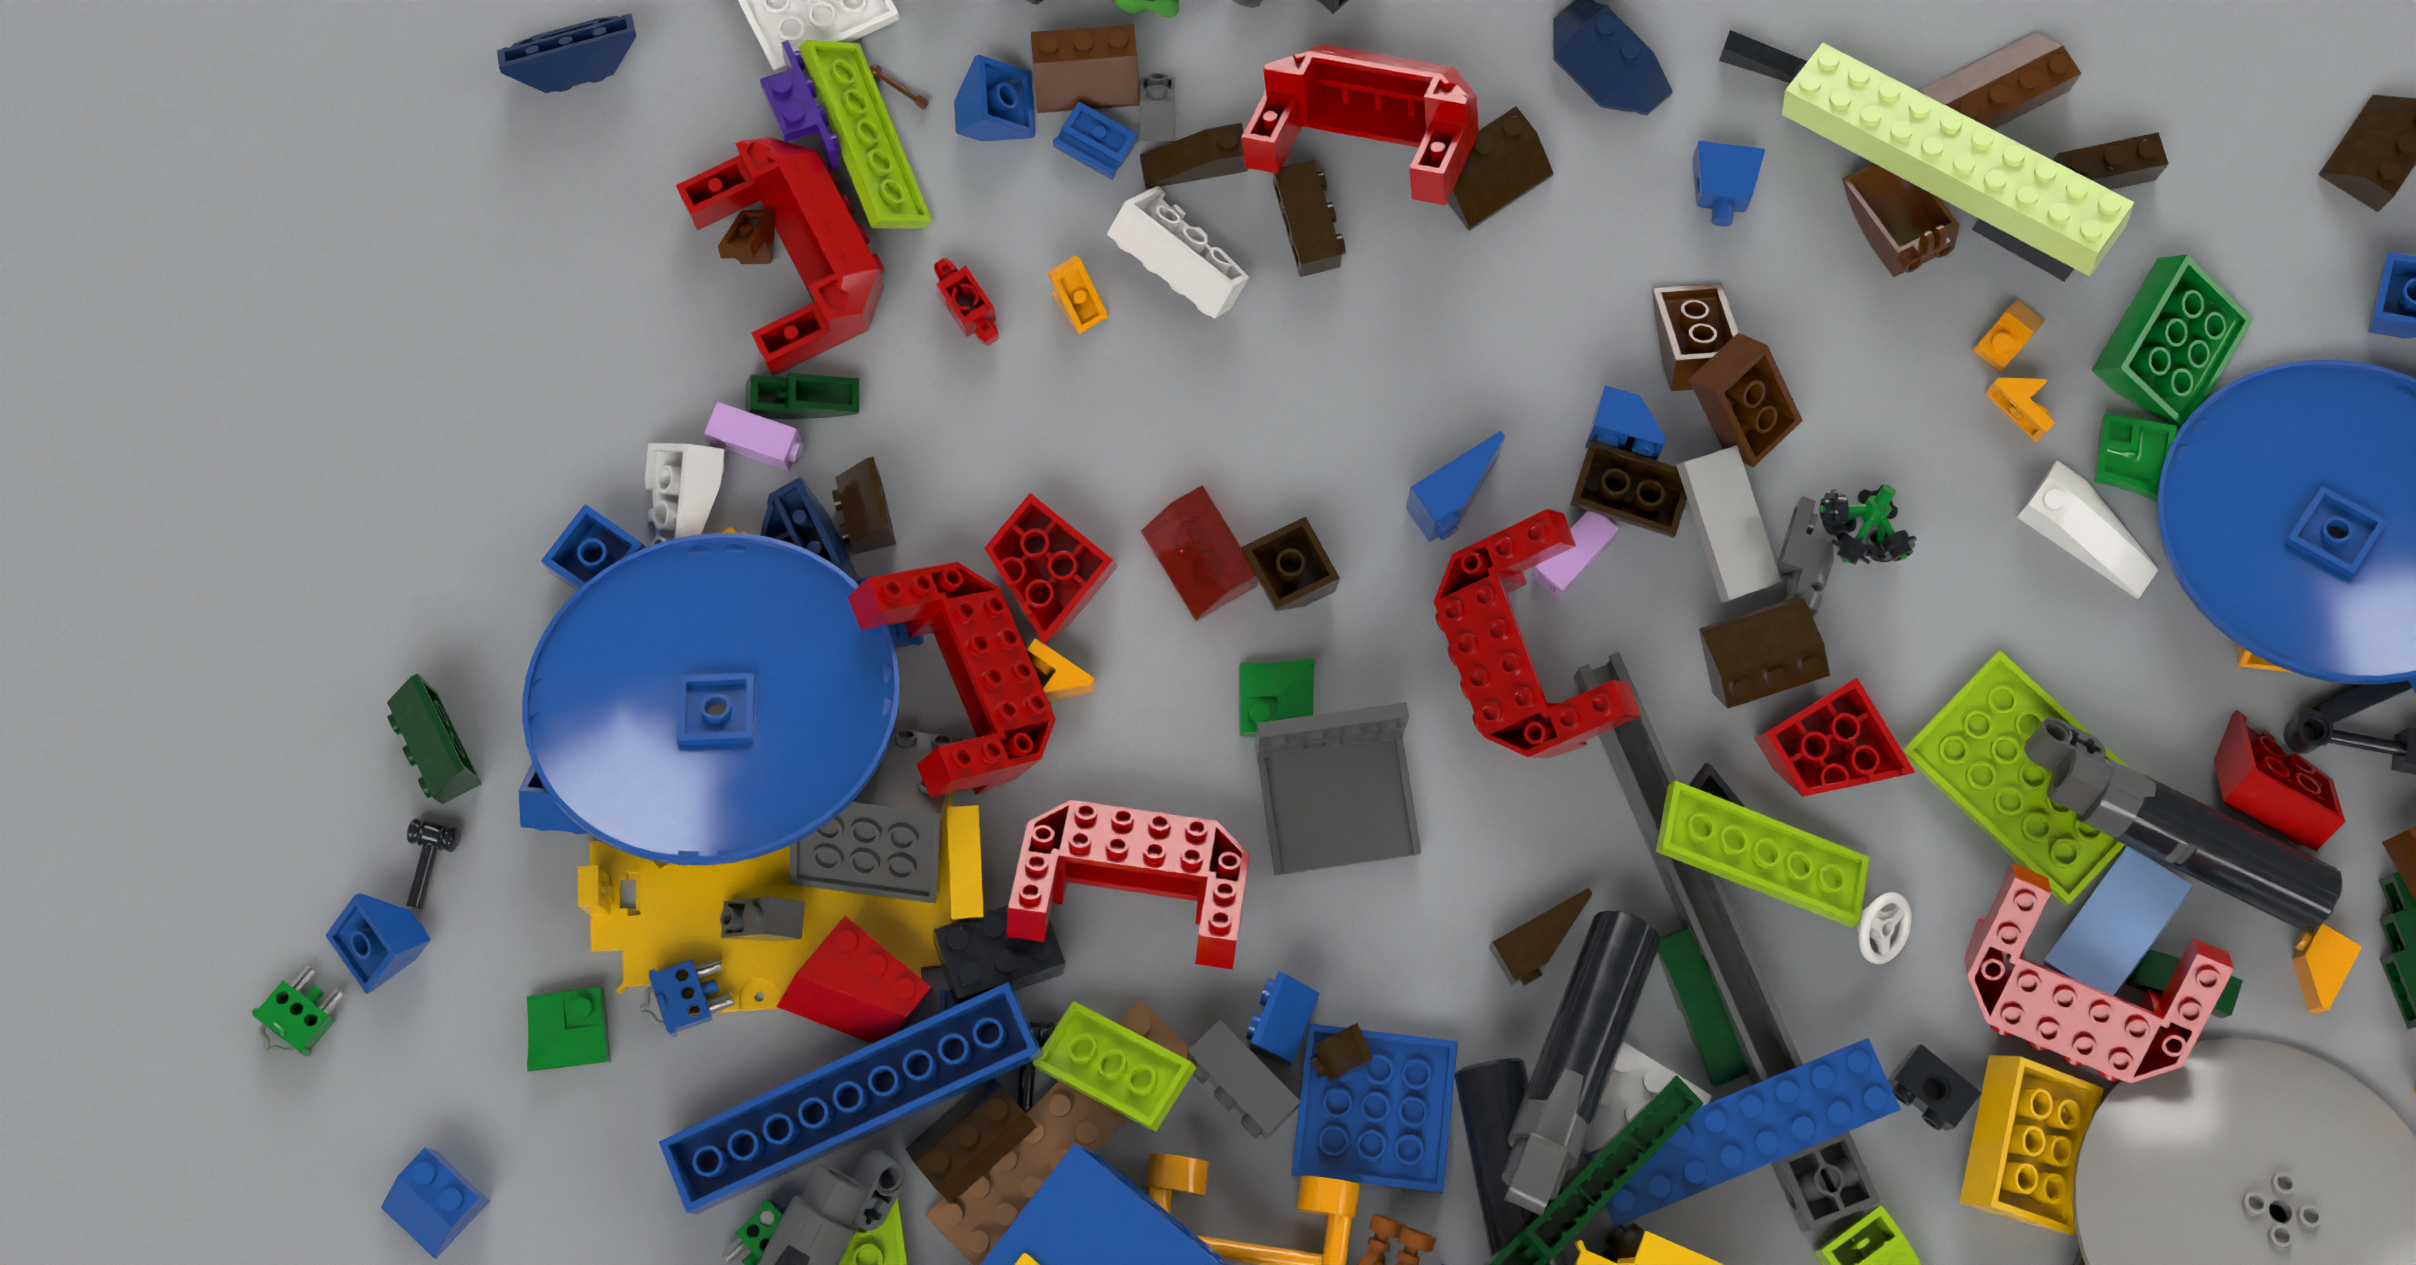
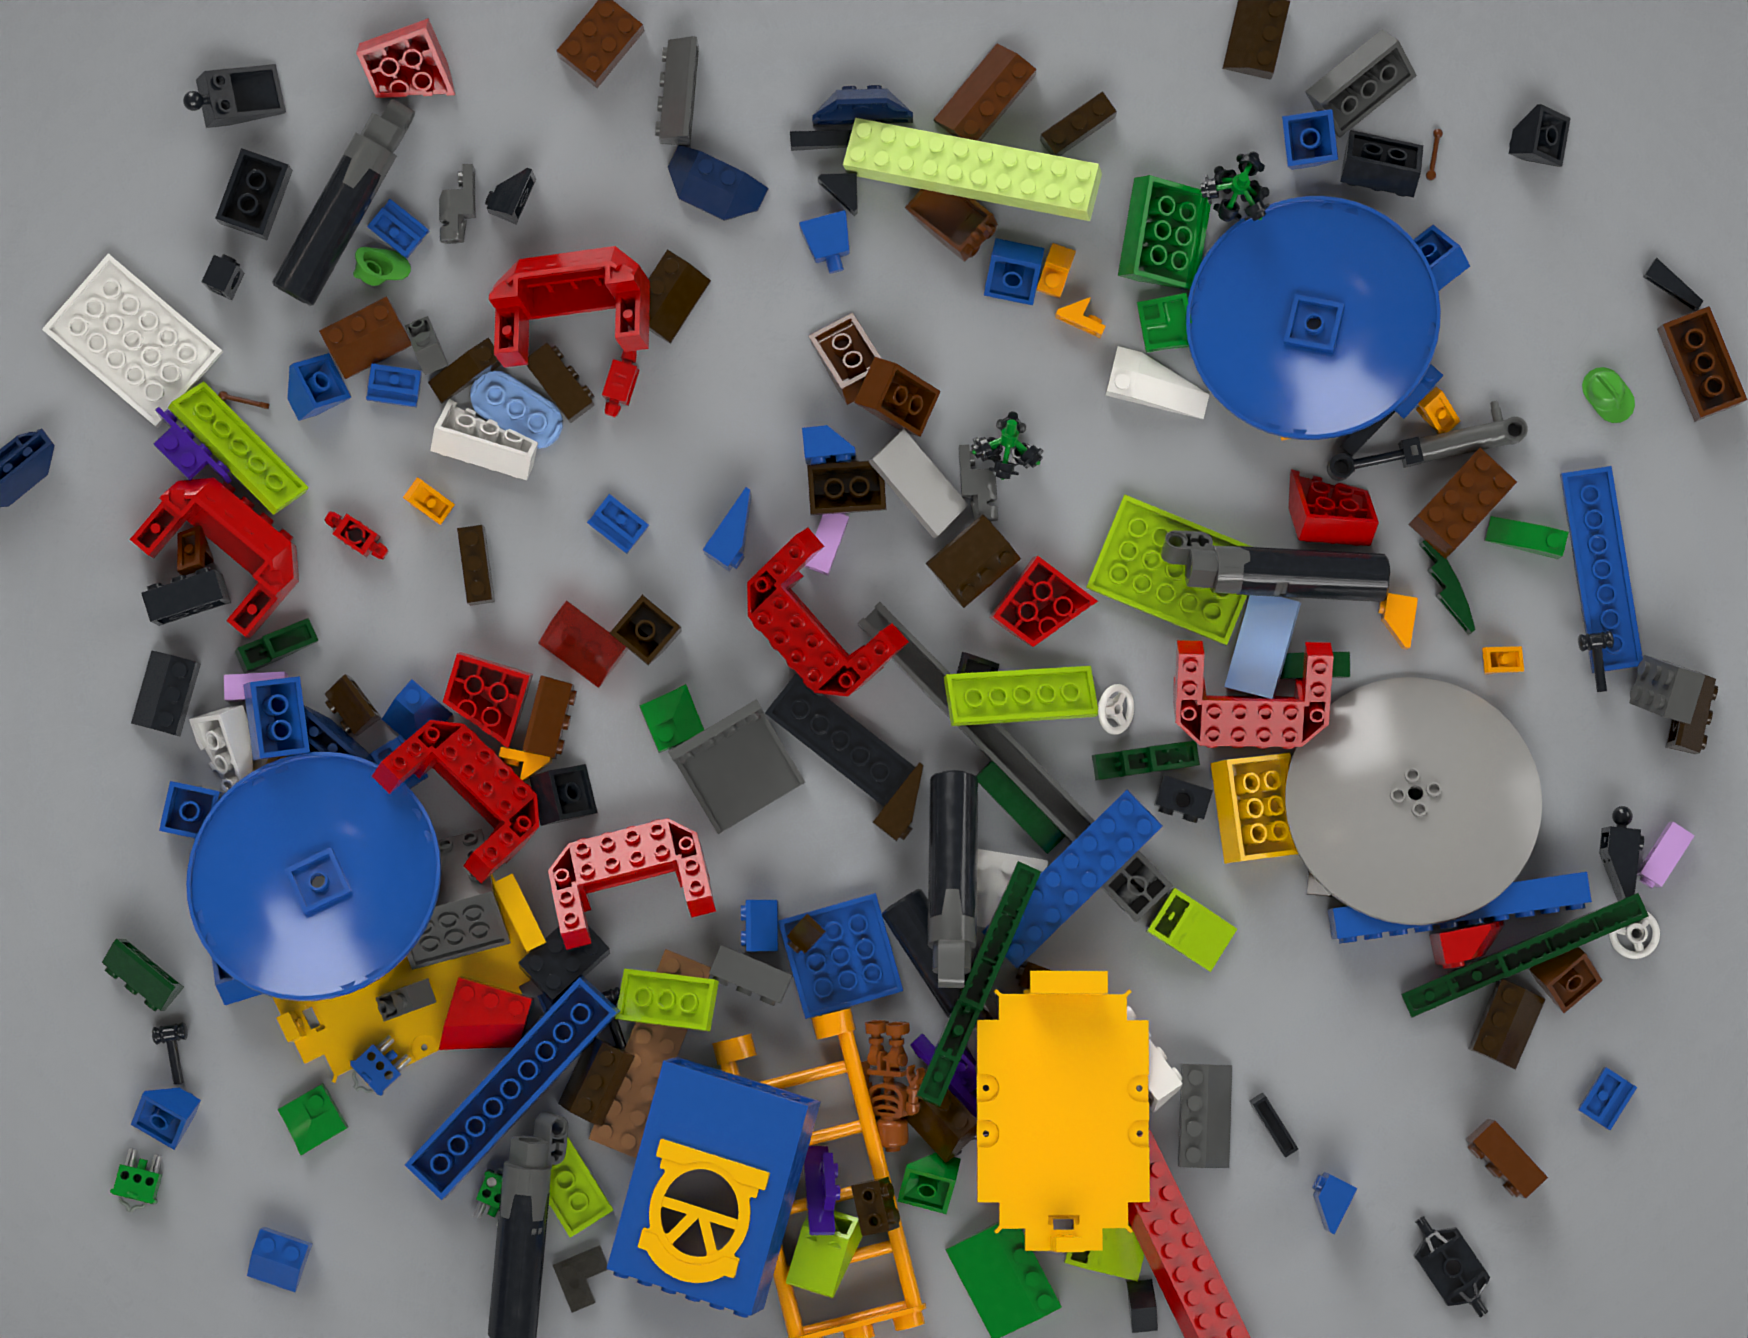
camera: 20 degrees left, 10 degrees up
(635, 400) = (166, 693): none -> black slope
(714, 286) = (185, 596): none -> black brick
(758, 477) = (276, 718): none -> blue slope
(940, 541) = (413, 709): none -> blue slope
(1090, 736) = (563, 794): none -> black slope
(1103, 398) = (476, 565): none -> dark brown brick
(1115, 626) = (549, 717): none -> reddish brown slope
(1241, 228) = (516, 407): none -> light blue tile
(1309, 422) = (618, 524): none -> blue plate
(1386, 248) = (620, 383): none -> red piece
(1490, 817) = (840, 740): none -> black plate
(1768, 125) = (842, 188): none -> black slope
(1810, 25) = (867, 104): none -> dark blue wedge
(1899, 1015) = (1145, 760): none -> dark green slope
(1955, 313) = (1014, 271): none -> blue slope
(2309, 337) = (1240, 185): none -> black plant

